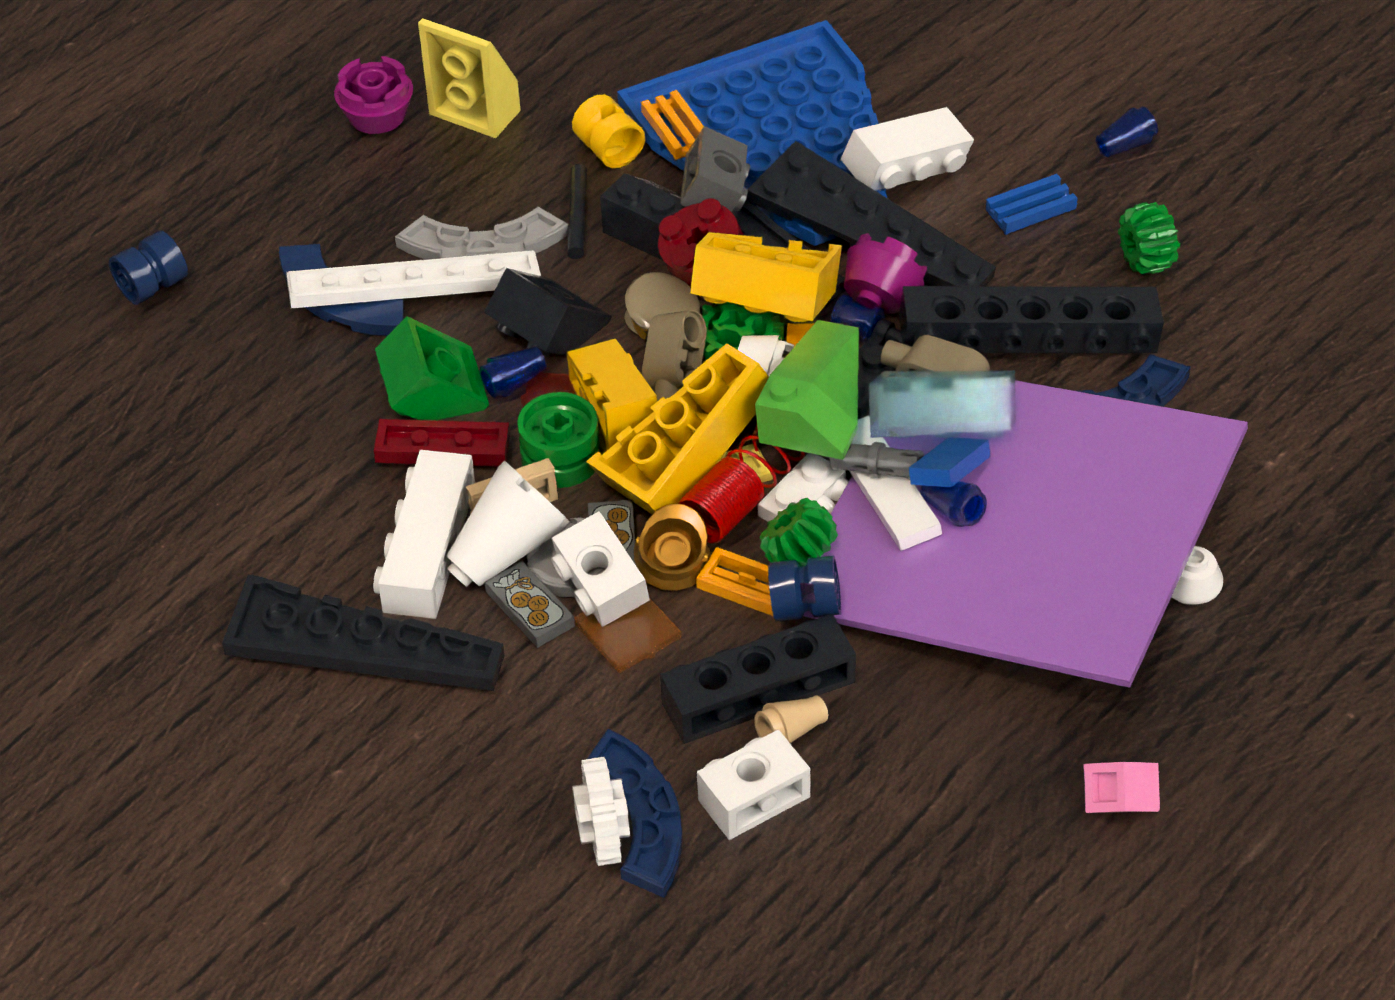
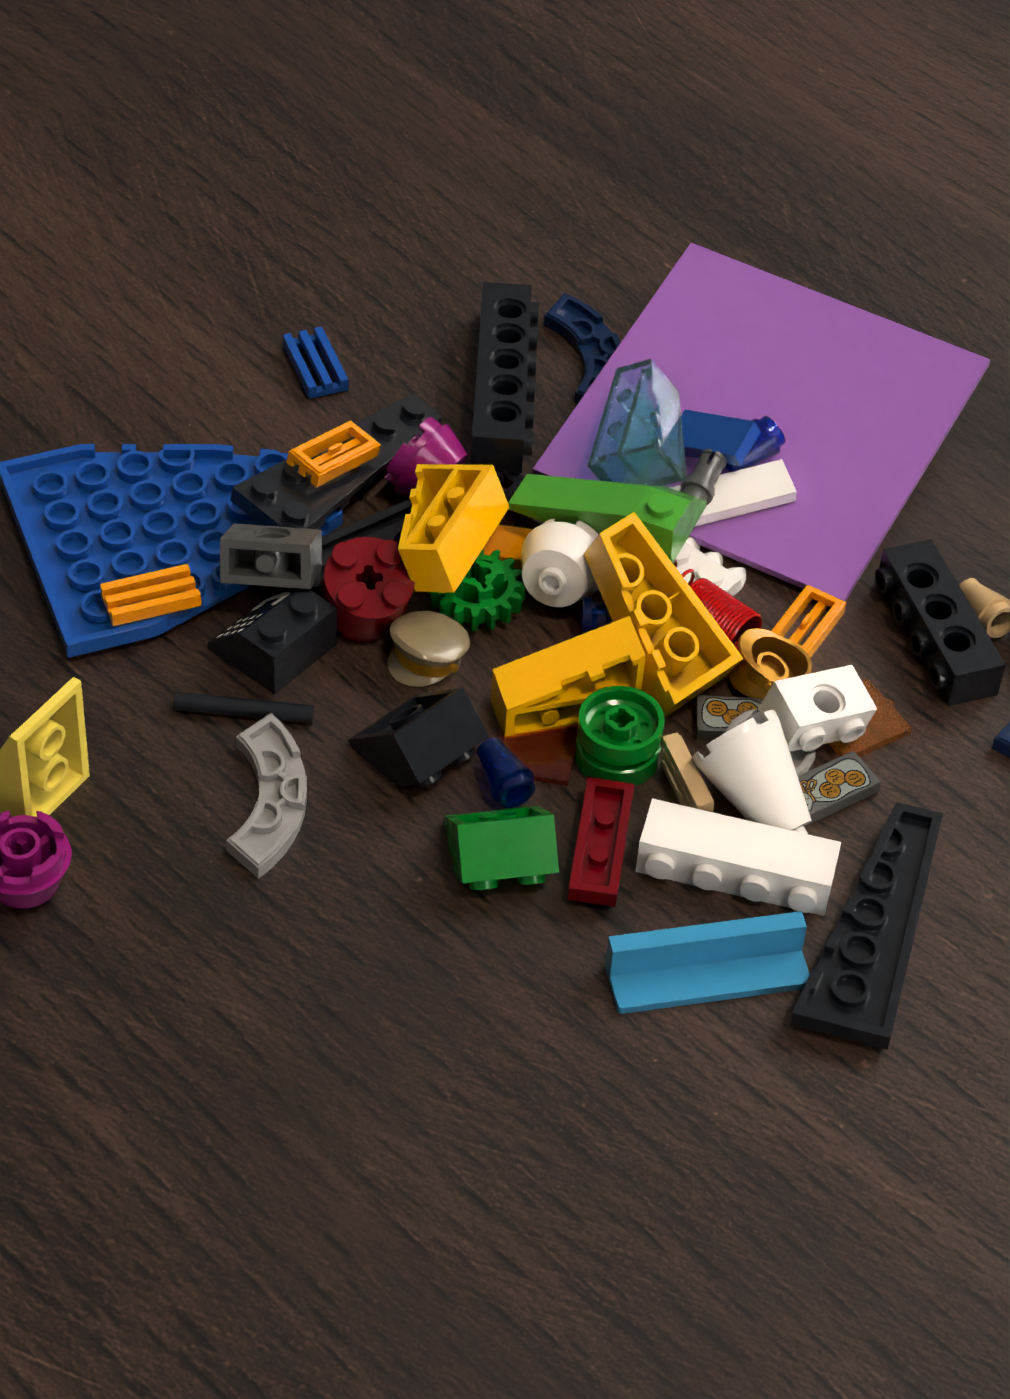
camera: 90 degrees left, 0 degrees up
(143, 270) = (278, 1104): dark blue wheel -> none
(308, 525) = (707, 962): none -> dark azure panel
(363, 317) = (342, 938): dark blue tile -> none
(404, 279) = (343, 854): white tile -> none
(608, 131) = (132, 659): yellow wheel -> none
(673, 350) = (508, 626): dark tan piece -> none
(788, 588) = (855, 560): dark blue wheel -> none
(799, 533) = (761, 562): green gear -> none
(854, 203) = (339, 457): none -> light orange tile
(907, 149) = (245, 419): white brick -> none
(932, 355) = (566, 439): dark tan piece -> none
(1129, 131) = (233, 276): clear blue cone -> none
(1148, 238) = (406, 280): green gear -> none

